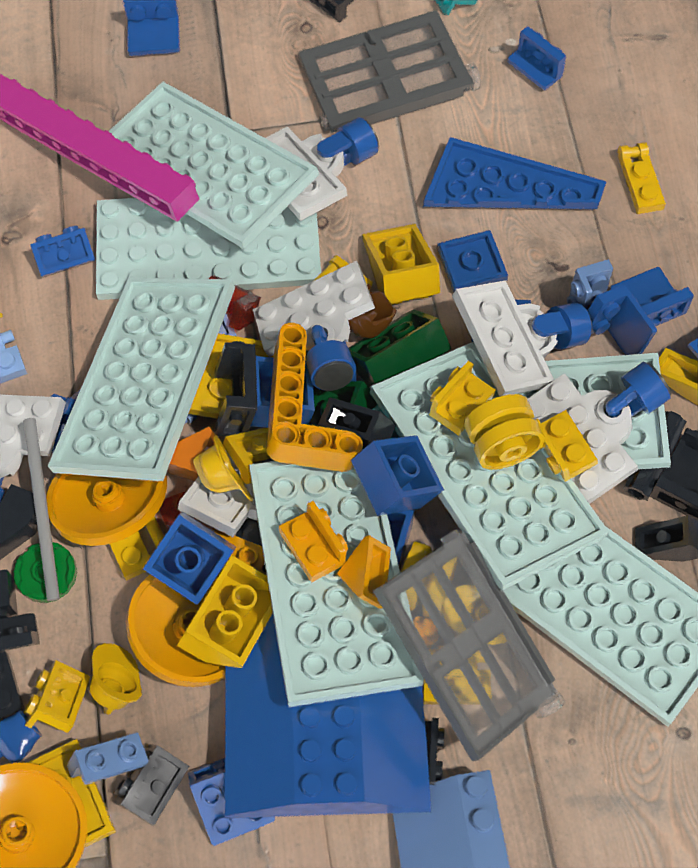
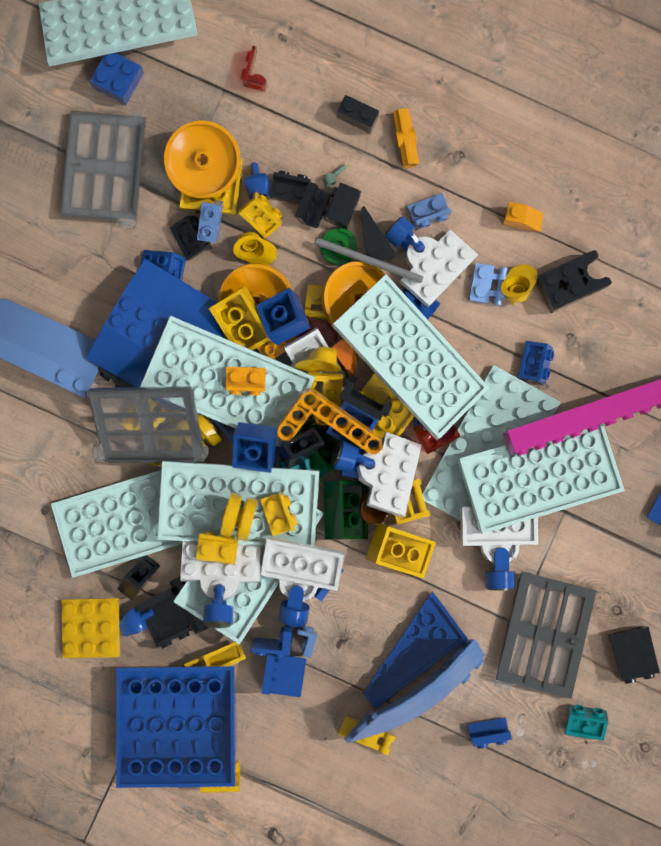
camera: 120 degrees right, 20 degrees up
(367, 569) = (212, 397): light orange slope -> none
(472, 260) = (376, 593): blue tile -> none
(555, 134) = (423, 697): none -> medium blue slope

